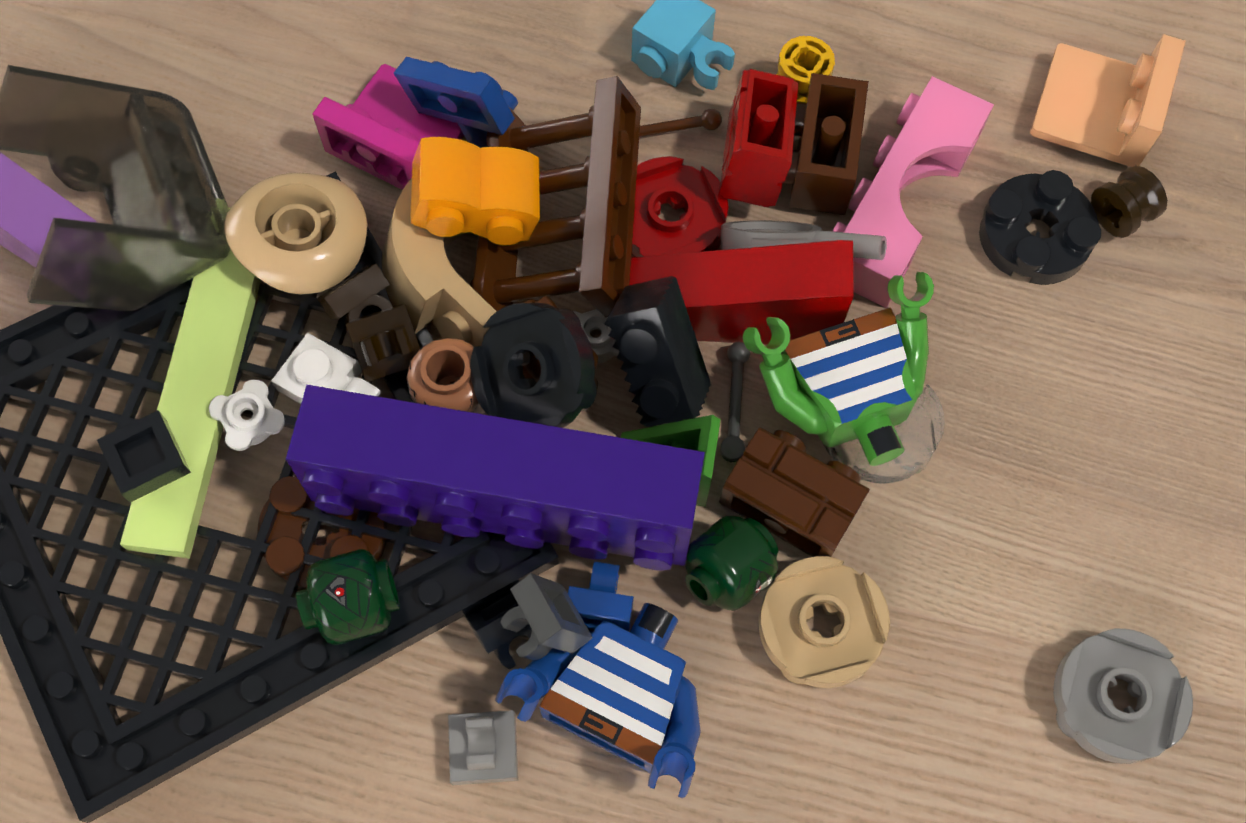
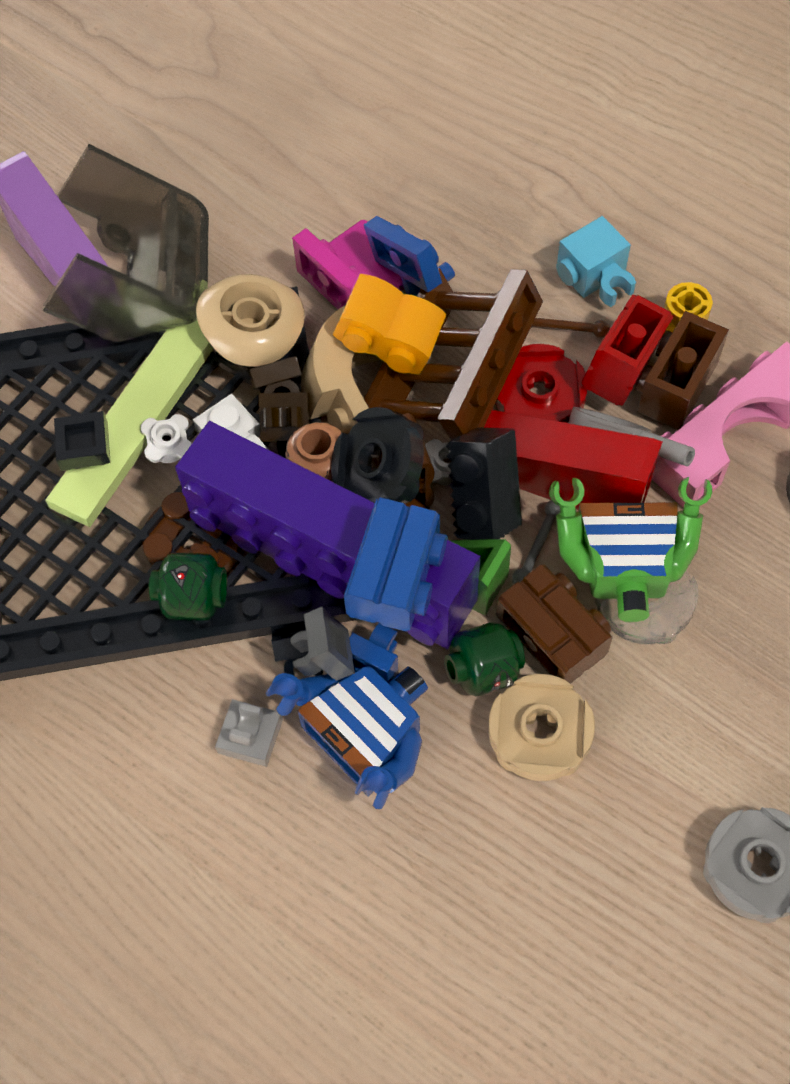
camera: 25 degrees right, 5 degrees down
(614, 500) = (394, 565): none -> blue brick

